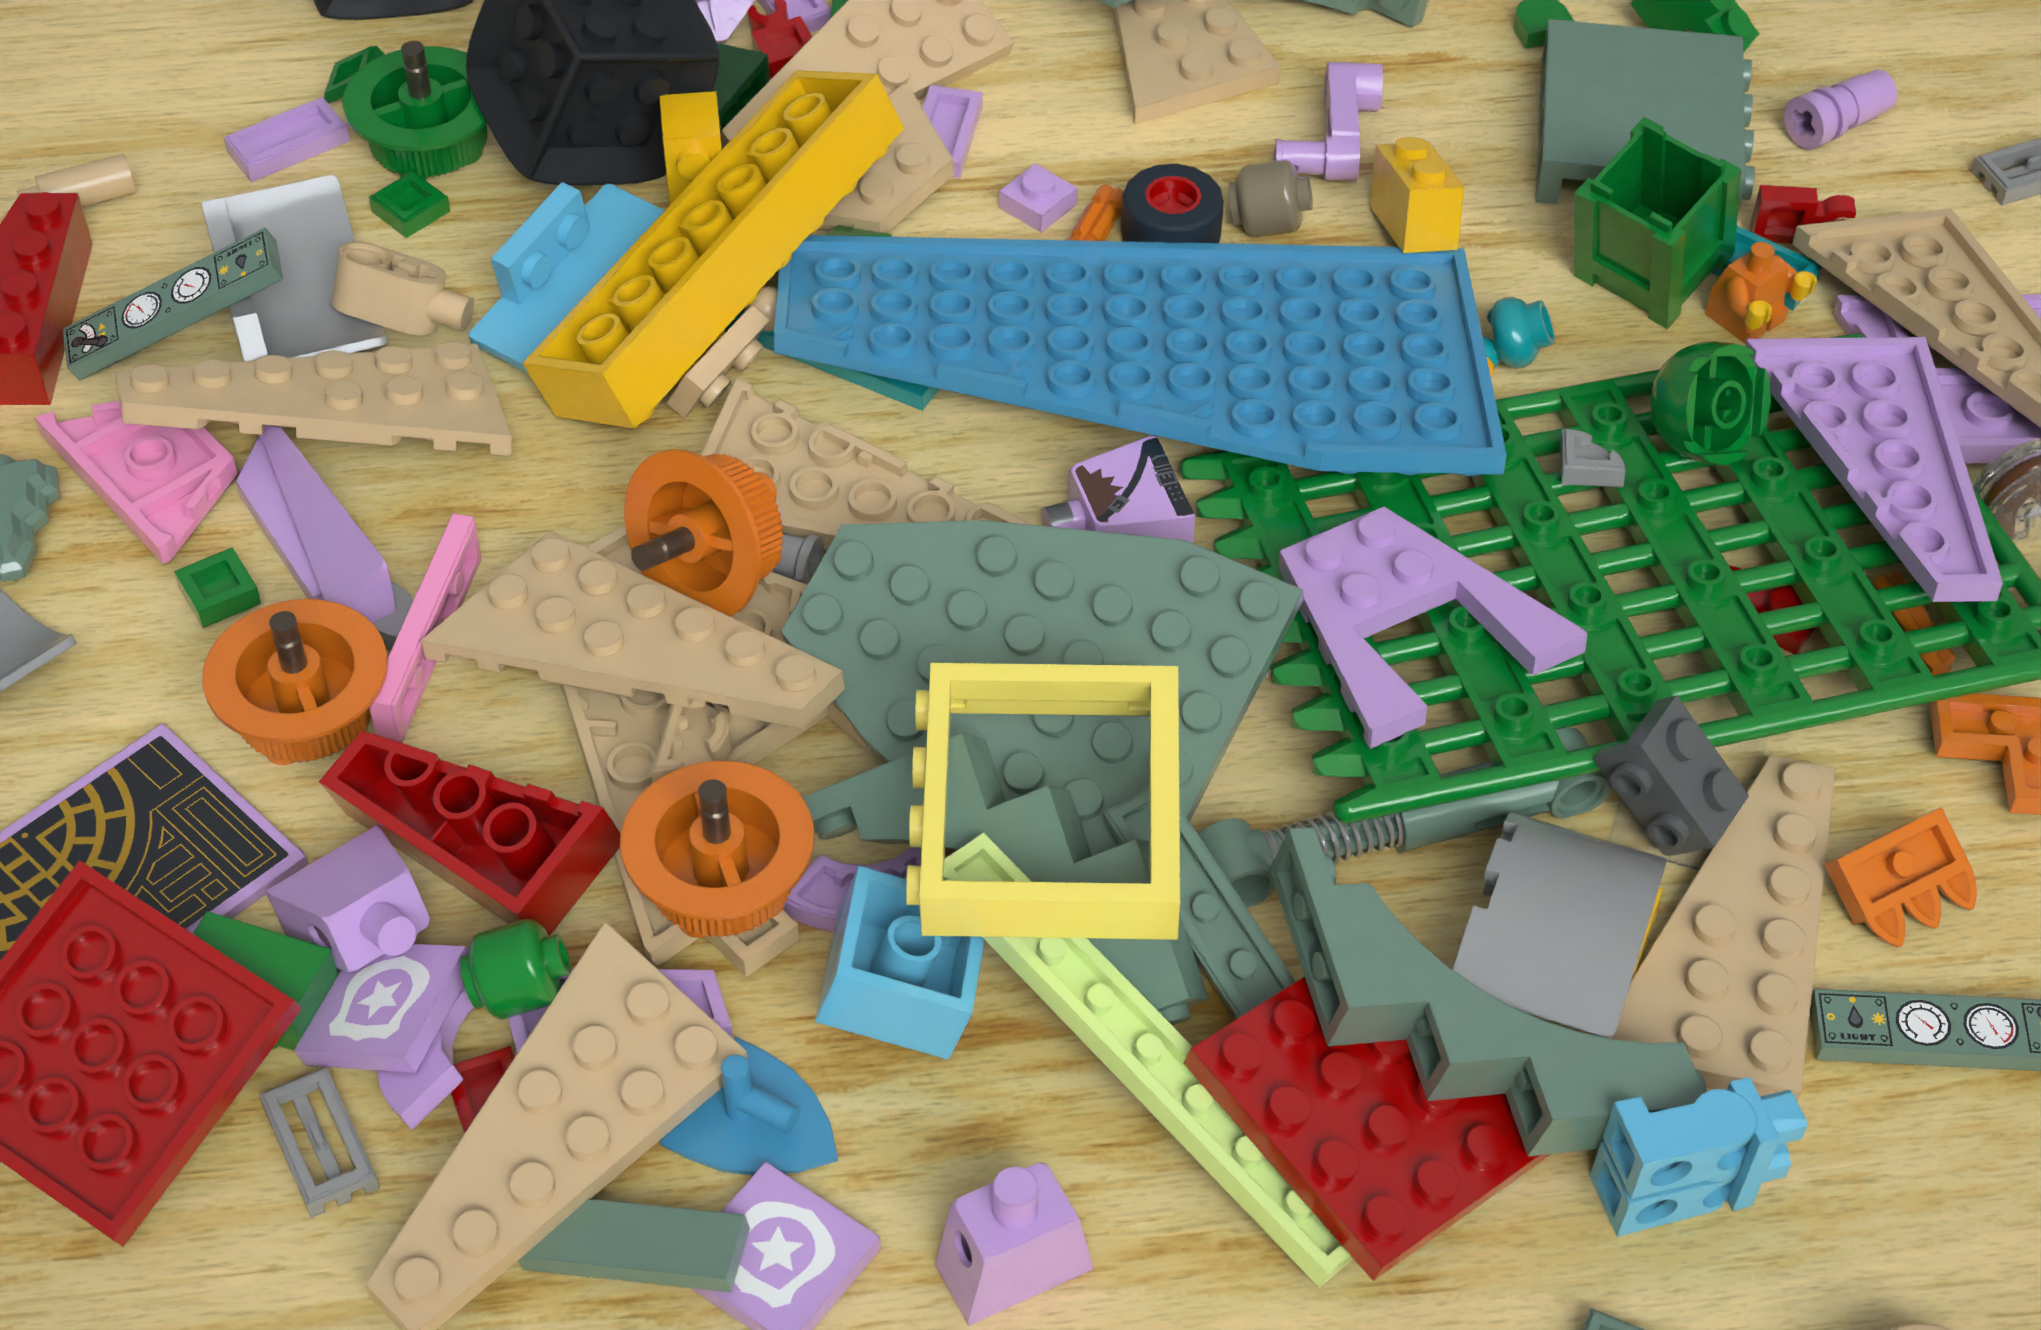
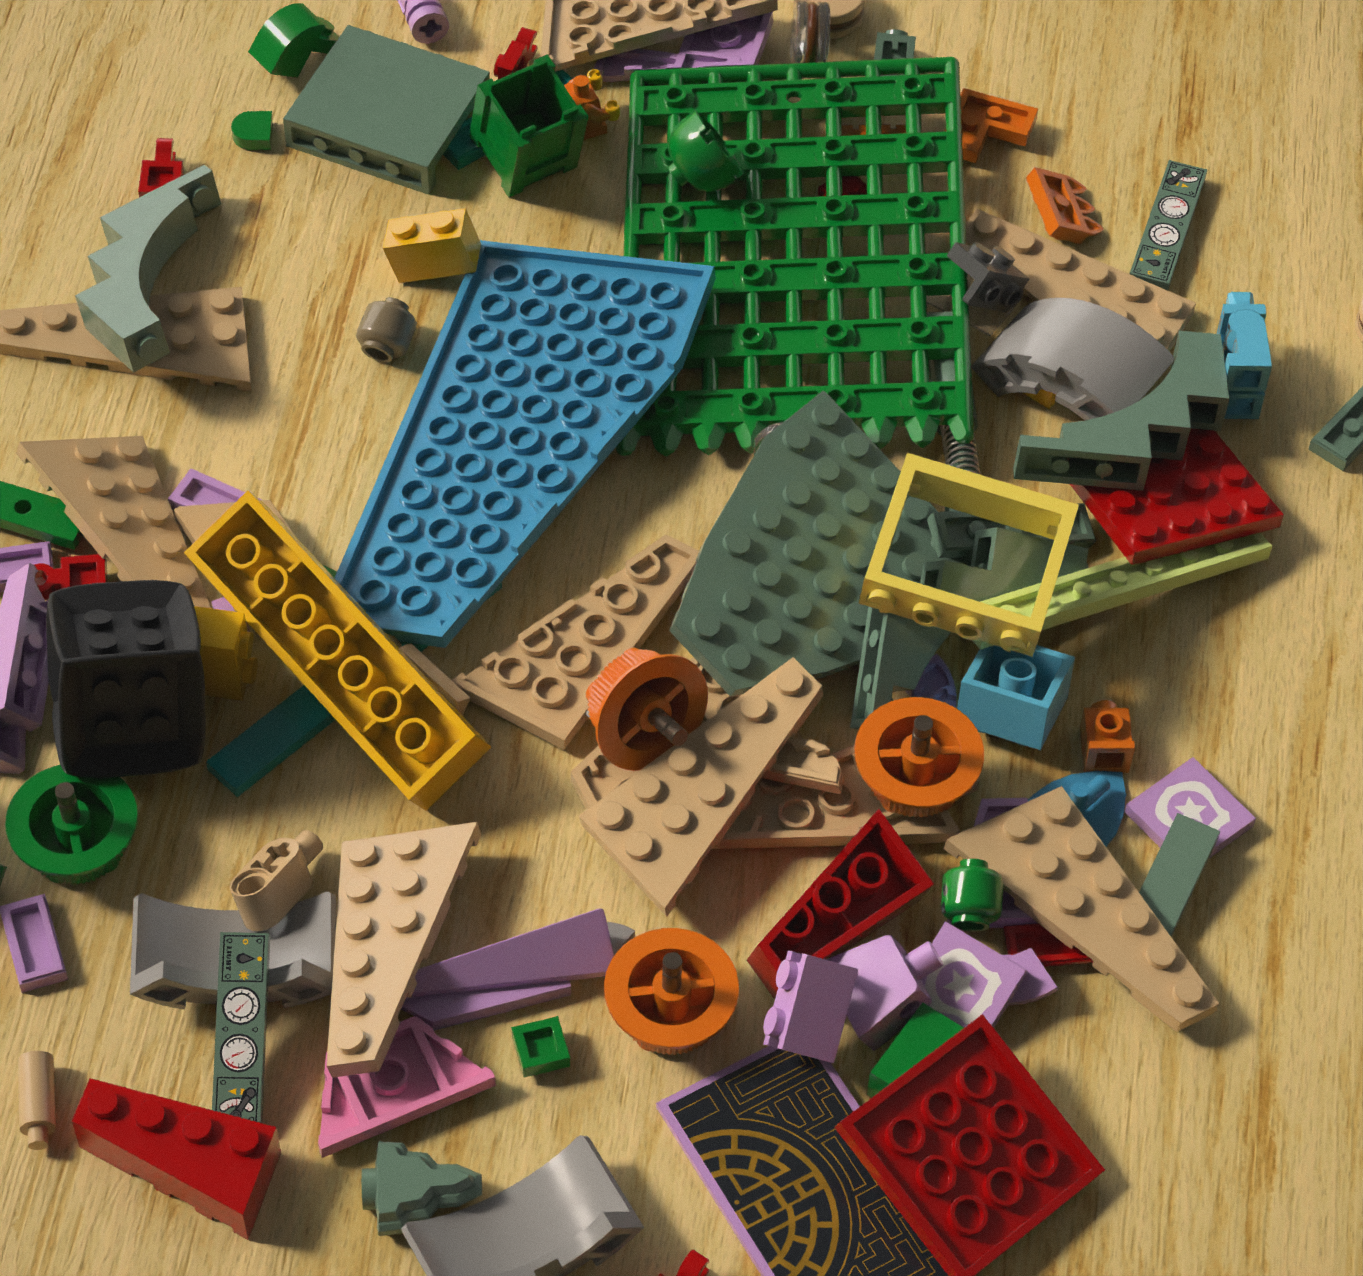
camera: 75 degrees left, 5 degrees up
(283, 811) = (809, 1006): none -> lavender brick
(337, 1185) = (1052, 1031): light grey tile -> none
(409, 204) = (152, 867): green tile -> none
(436, 599) = (587, 894): bright pink tile -> none
(555, 264) = (310, 759): medium azure bracket -> none
(878, 1113) = (1106, 738): none -> orange brick
(1010, 1242) = (1219, 672): lavender torso -> none
(1038, 197) = (315, 465): lavender plate -> none
(1099, 215) = (358, 437): orange axle -> none
(1125, 493) = (652, 487): lavender torso -> none
(1172, 206) = (377, 389): black wheel -> none
(1347, 90) = (293, 260): lavender beam -> none
(1388, 571) = (788, 365): lavender wing -> none
(1517, 332) = (569, 233): teal animal -> none
(1587, 462) = (713, 235): light grey tile -> none
(1892, 445) = (760, 82): lavender wing -> none

